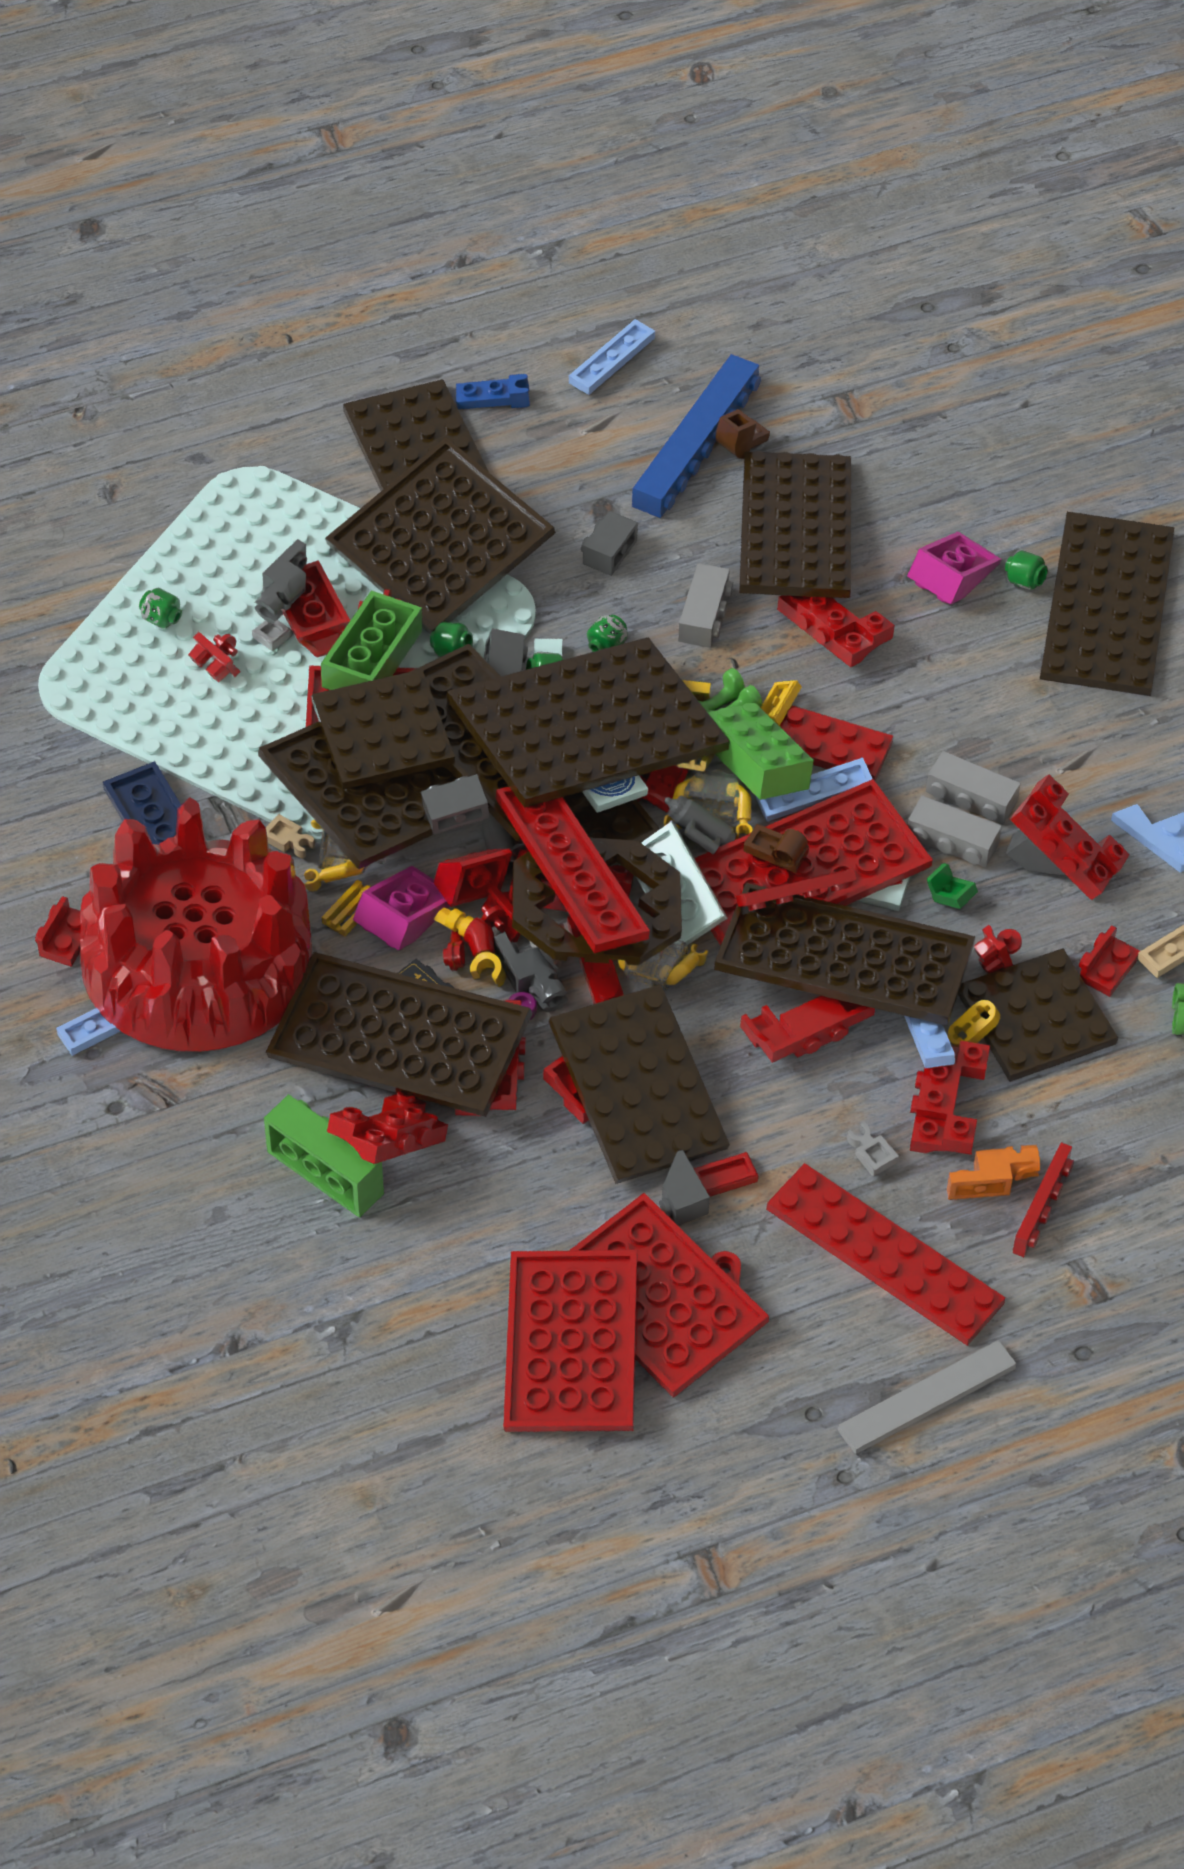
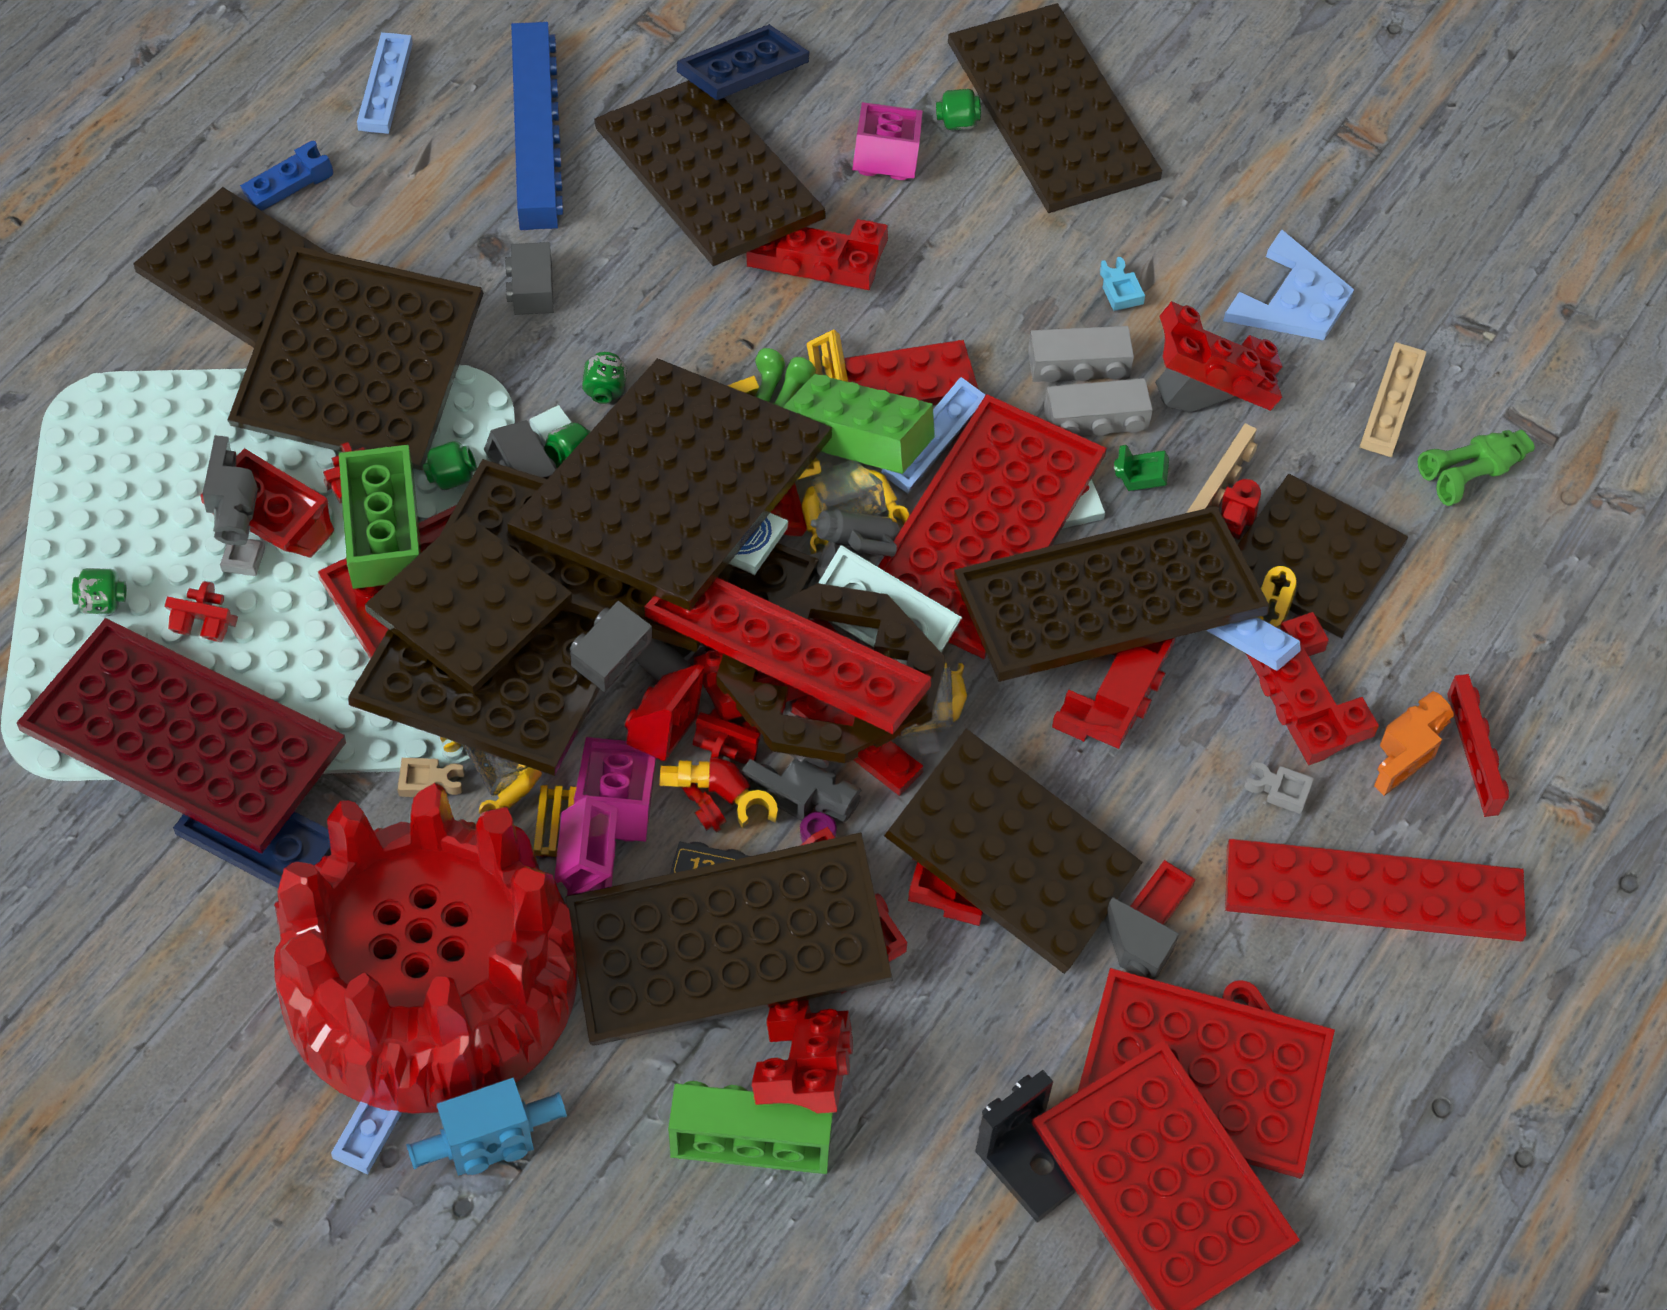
camera: 35 degrees left, 5 degrees up
(61, 934) = (257, 1032): red bracket -> none
(148, 725) = (182, 734): none -> dark red plate
(158, 1062) = (485, 1128): none -> dark azure brick
(346, 935) = (586, 846): none -> dark pink piece
(489, 1259) = (1011, 1143): none -> black bracket
(705, 605) = (678, 297): light grey brick -> none
(740, 433) = (580, 101): reddish brown brick -> none
(783, 850) = (958, 516): reddish brown plate -> none
(785, 892) = (1021, 543): red plate -> none
(884, 459) = (742, 62): none -> dark blue plate
(926, 1397) = (1533, 1023): light grey tile -> none
(1022, 918) = (1227, 470): none -> tan plate
(1046, 756) = (1121, 288): none -> medium azure plate
(1107, 962) = (1339, 465): red bracket -> none

